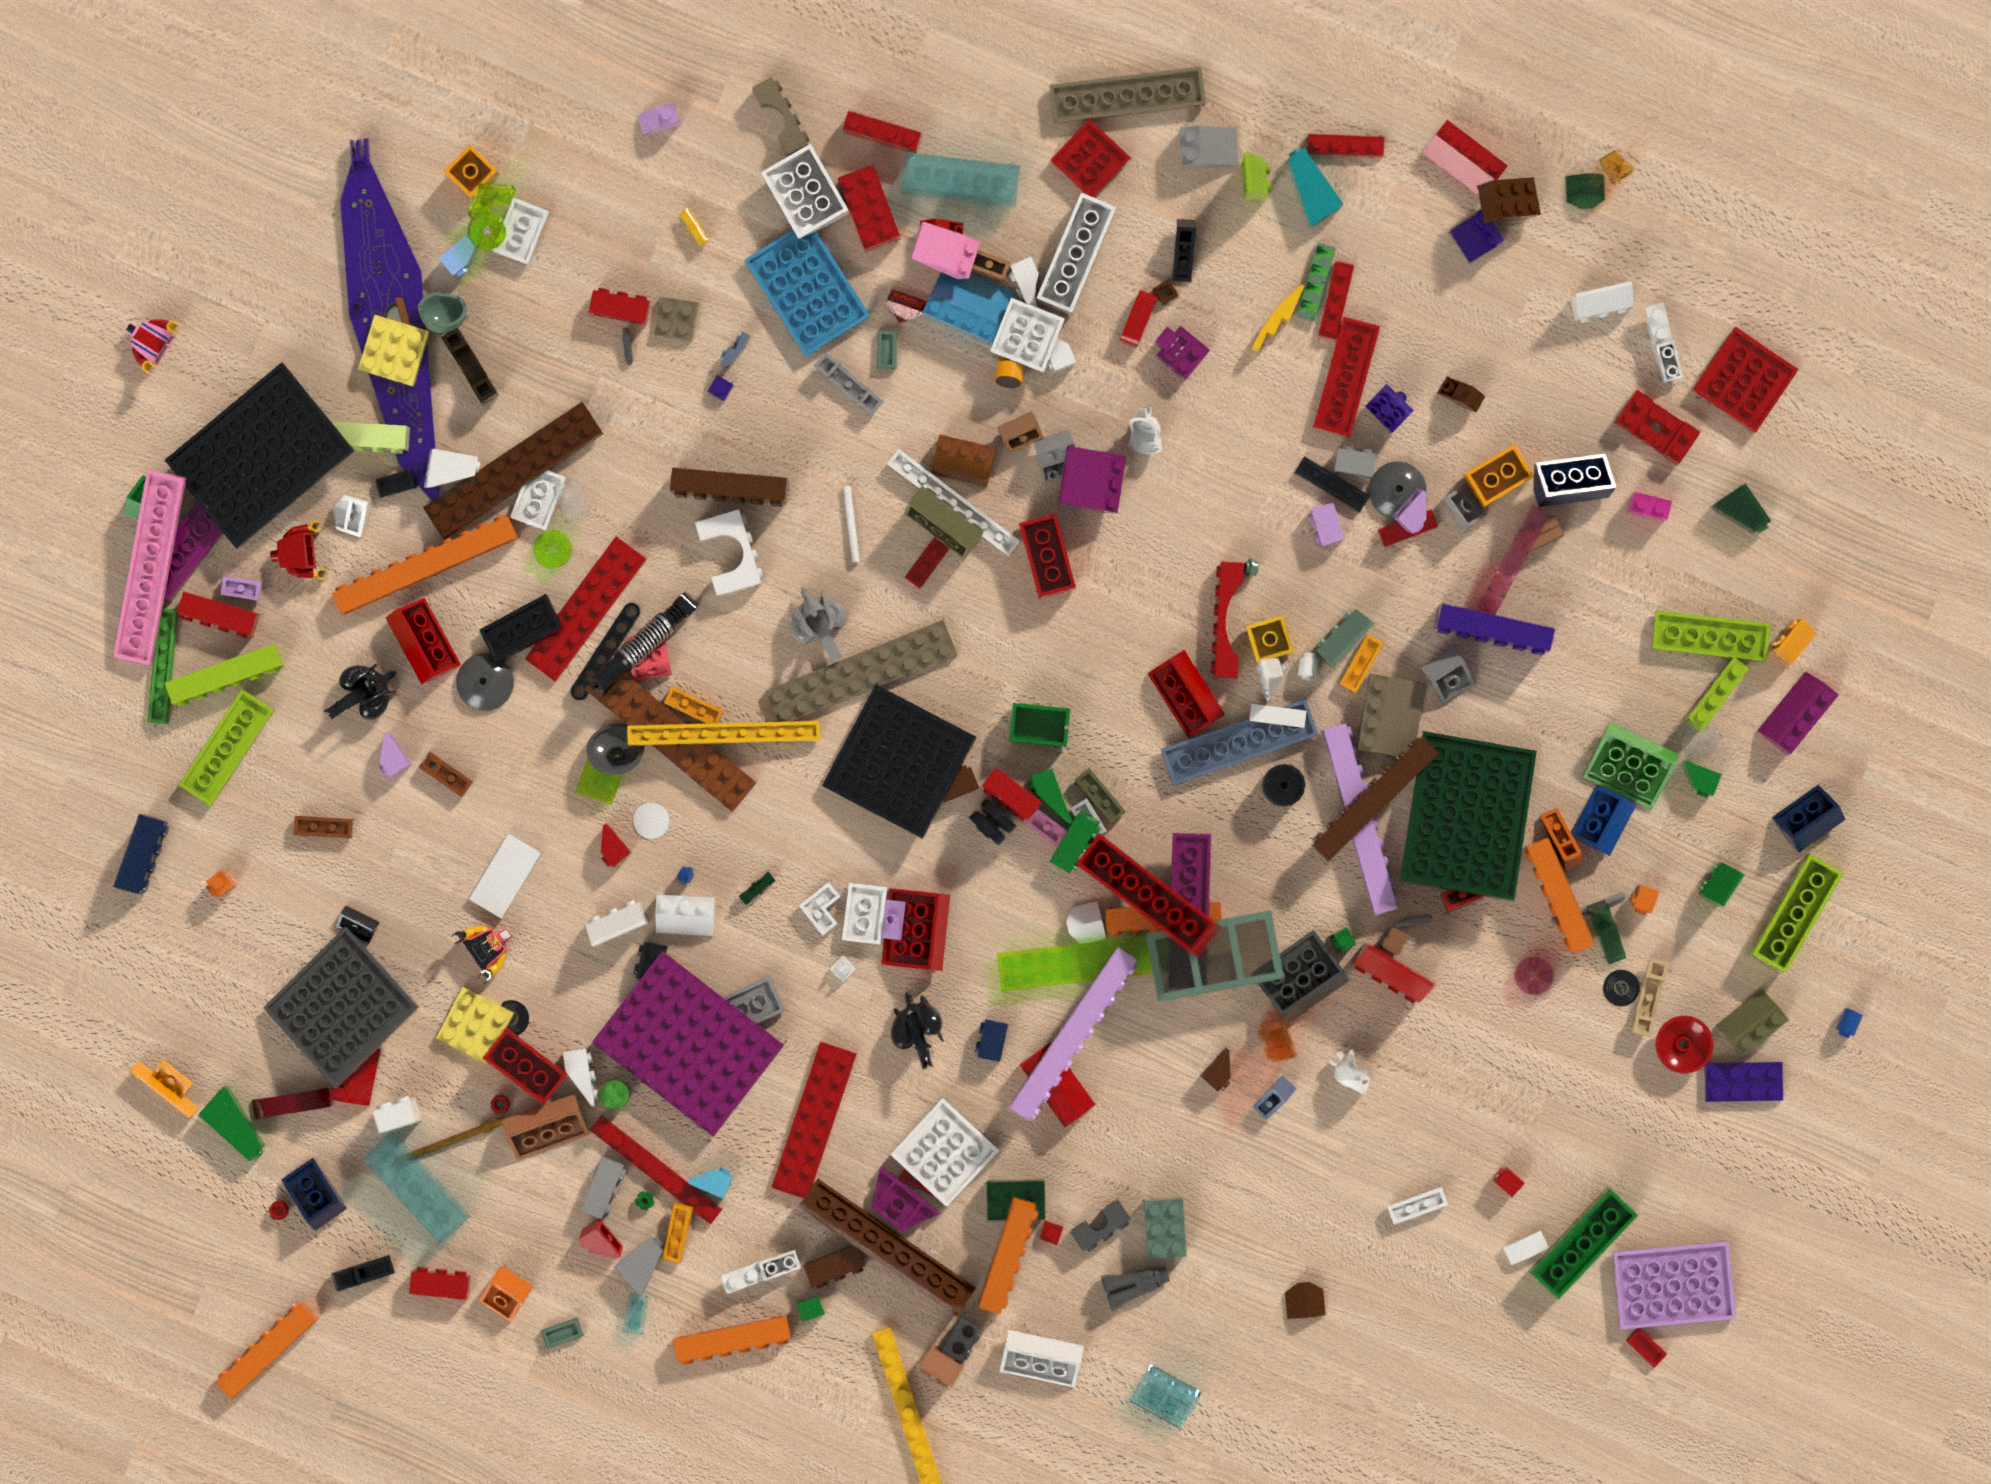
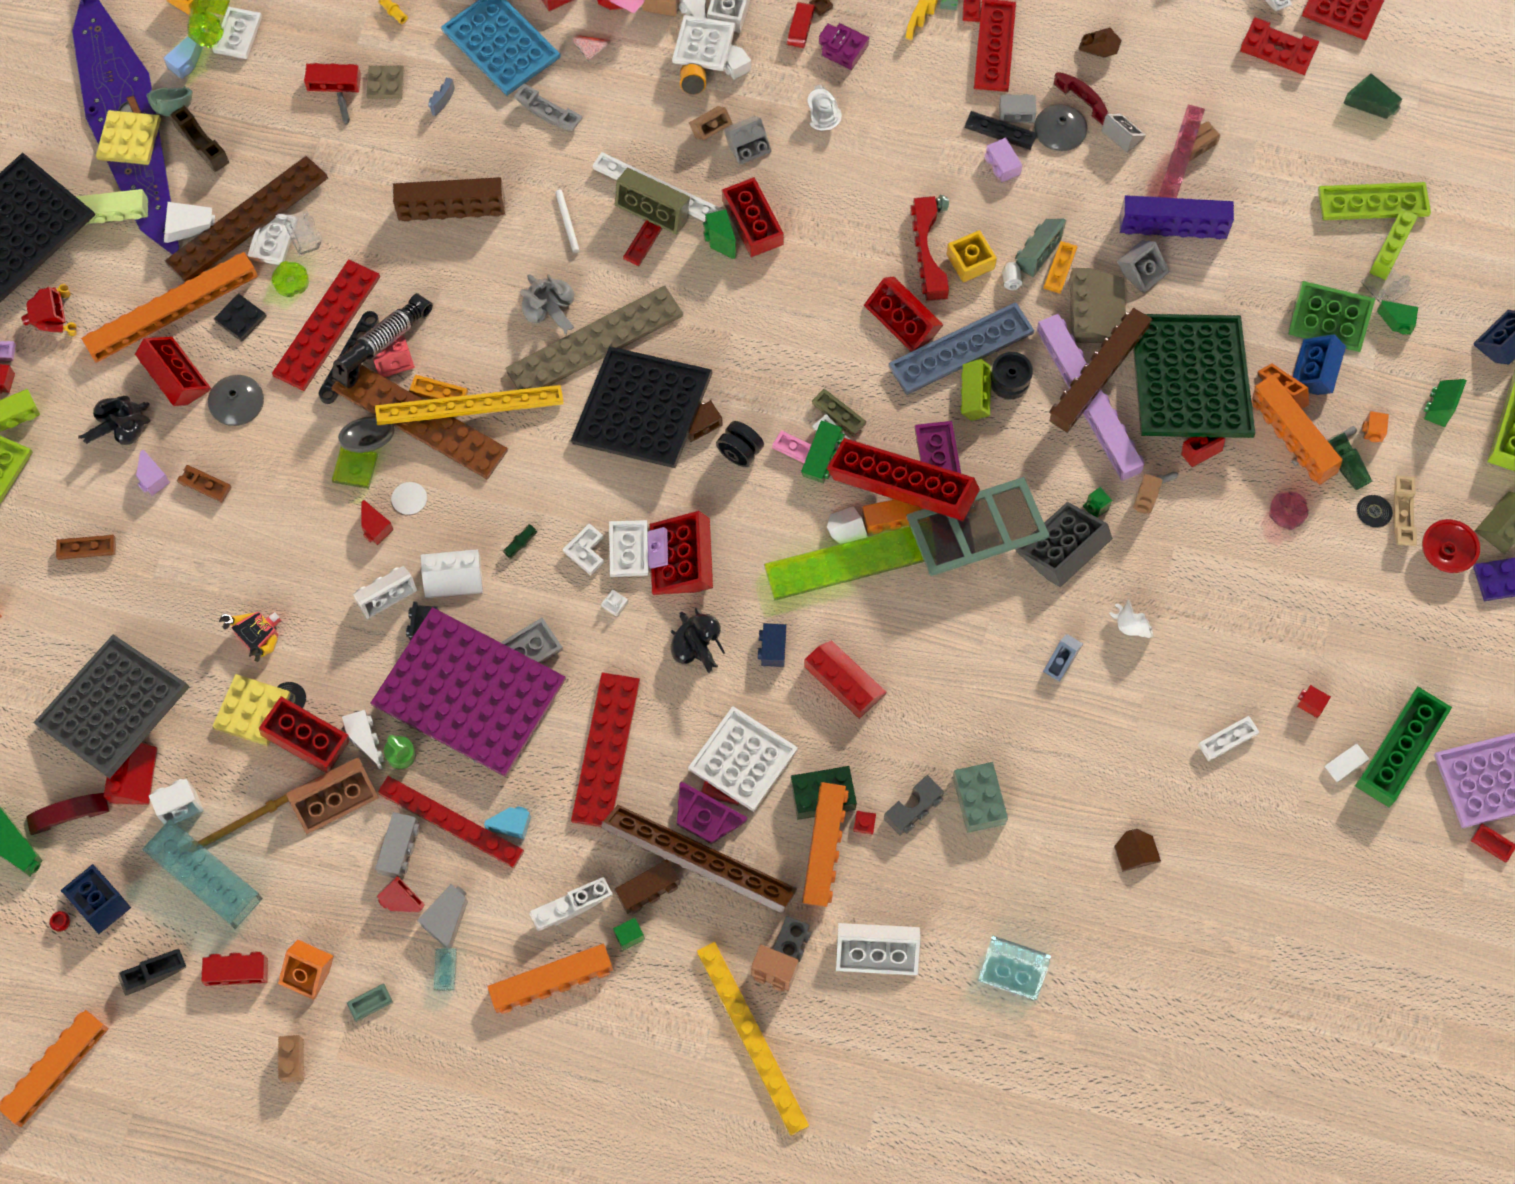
camera: 10 degrees left, 20 degrees down
(351, 515) = (97, 274): white slope -> none
(358, 923) = (129, 633): black slope -> none
(396, 483) = (138, 244): black tile -> none
(485, 1376) = (290, 1058): none -> medium nougat brick
(495, 1108) = (281, 776): red plate -> none
(496, 586) = (240, 317): none -> black plate
(505, 876) = (270, 567): white tile -> none
(521, 628) = (265, 345): black plate -> none
(644, 1195) = (442, 858): green plate -> none
(677, 1232) = (479, 879): light orange tile -> none
(685, 875) = (447, 539): blue plate -> none
(720, 388) = (432, 130): dark purple plate -> none
(746, 574) = (456, 235): white arch -> none
(887, 349) = (579, 80): sand green tile -> none
(963, 460) = (662, 153): dark orange slope -> none
(969, 305) = (644, 36): dark azure slope -> none
(1009, 572) = (720, 233): none -> green slope
(1011, 795) = (759, 416): red brick -> none
(1039, 725) = (770, 356): green piece -> none
(1049, 791) = (790, 412): green slope -> none
(1073, 1033) = (851, 620): lavender brick -> none
(1092, 479) = (783, 148): magenta slope -> none
(1144, 1280) = (969, 855): dark grey piece -> none
(1218, 1071) = (1002, 641): reddish brown slope -> none
(1244, 795) = (976, 390): none -> lime brick
(1270, 675) = (976, 281): white wedge -> none
(1277, 715) = (991, 319): white sticker -> none
(1277, 1040) = (1056, 597): clear orange slope -> none
(1389, 407) = (1048, 55): dark purple plate -> none
(1393, 973) = (1155, 518): red slope -> none
(1395, 532) = (1077, 154): red tile -> none
(1412, 512) = (1079, 136): lavender slope -> none
(1414, 439) = (1069, 83): none -> dark red slope
(1498, 476) = (1149, 98): light orange brick -> none
(1572, 480) = (1218, 90): dark blue slope -> none
(1649, 506) = (1290, 105): dark pink brick -> none
(1793, 641) = (1450, 190): light orange slope -> none
(1797, 713) = (1471, 251): magenta slope -> none

